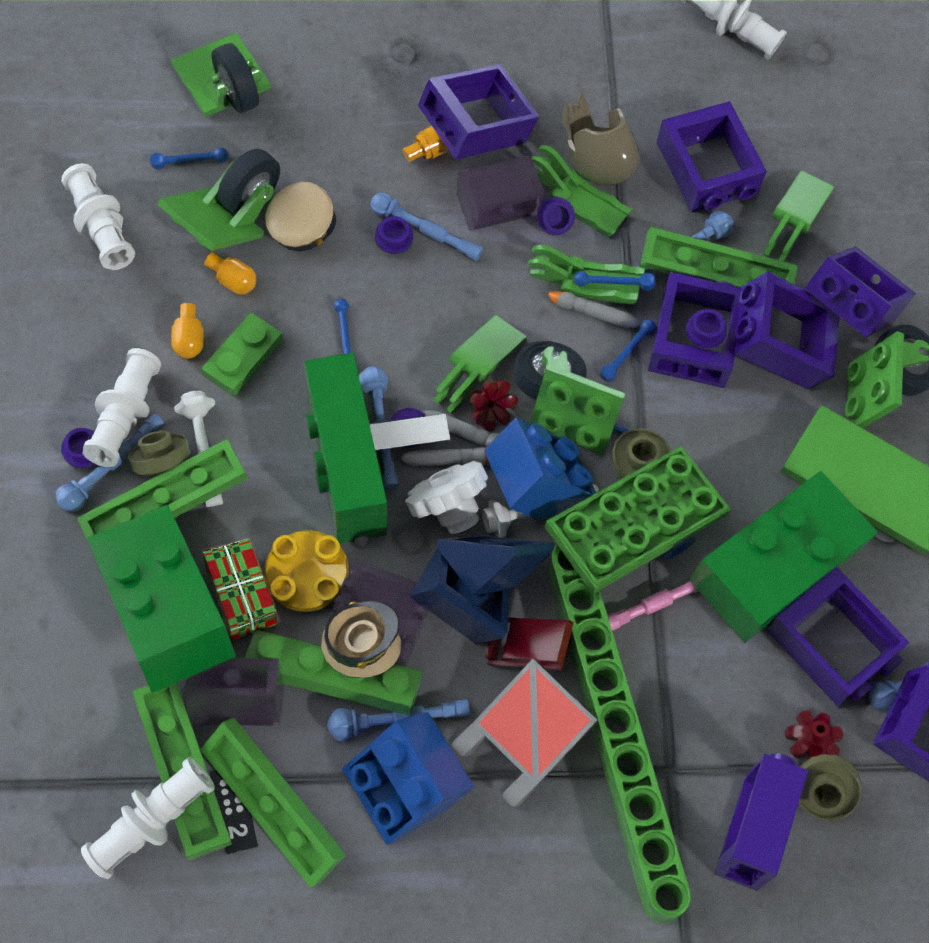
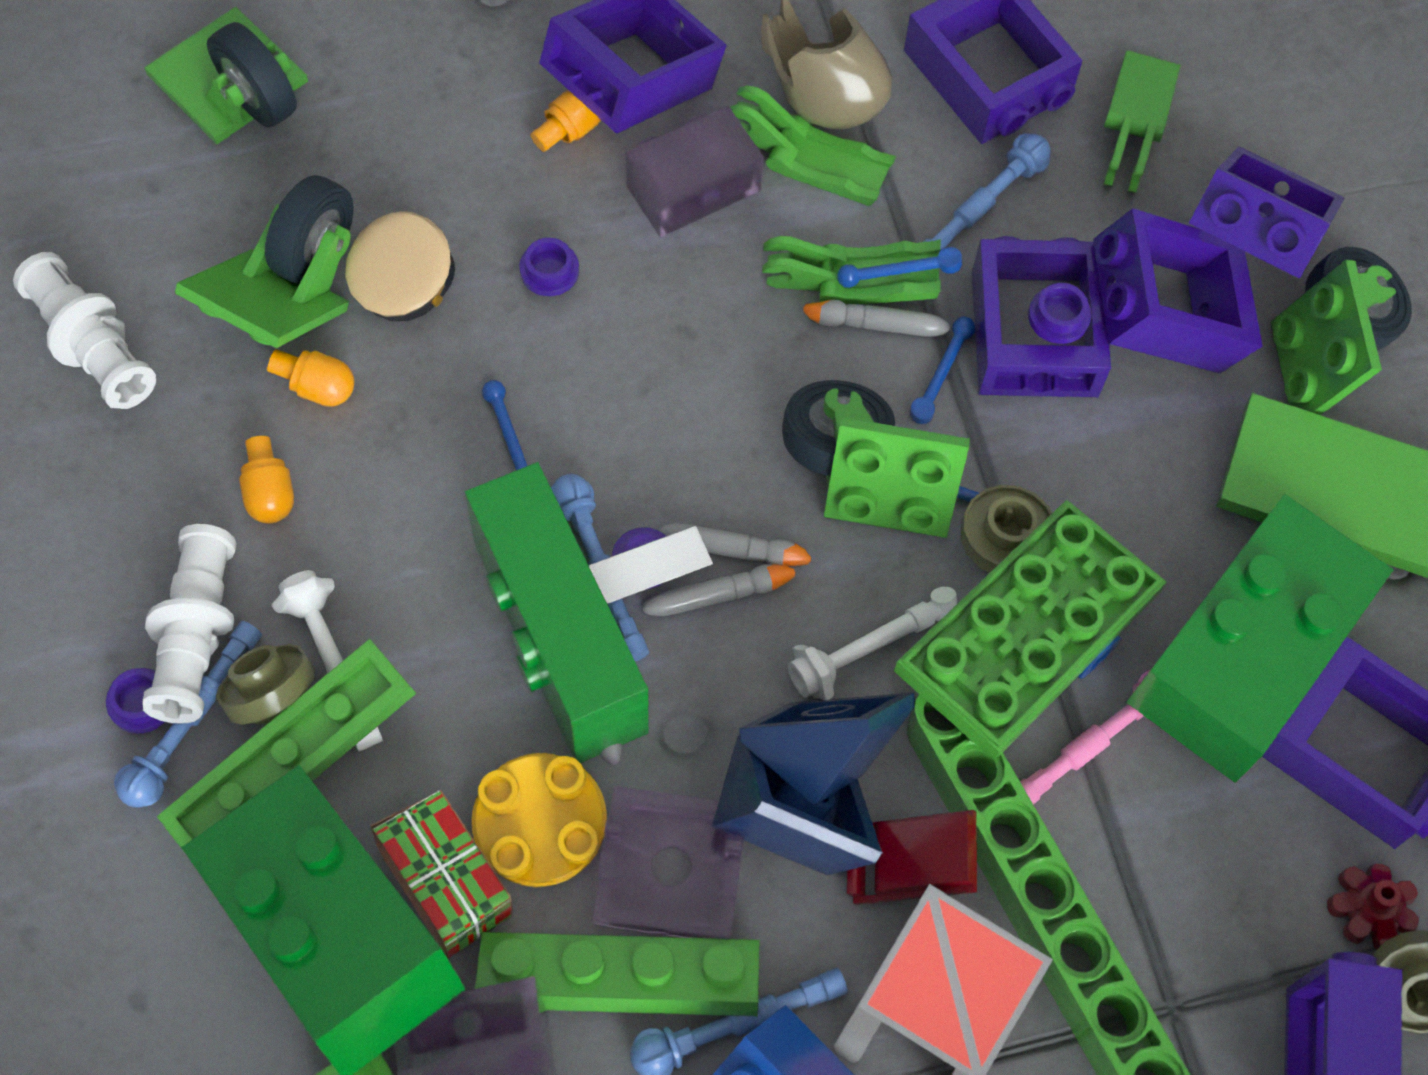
camera: 10 degrees left, 0 degrees up
(158, 160) = (160, 225): blue hinge -> none
(242, 354) = (358, 498): bright green plate -> none
(362, 639) = (656, 913): tan piece -> none
(385, 206) = (523, 226): medium blue piece -> none
(450, 496) = (735, 652): white plant -> none
(478, 359) = (725, 429): bright green arm -> none
(492, 404) = (762, 495): dark red plant -> none
(538, 470) = (861, 584): blue slope -> none
(555, 215) = (785, 189): dark purple plate -> none
(709, 261) = (992, 209): bright green plate -> none

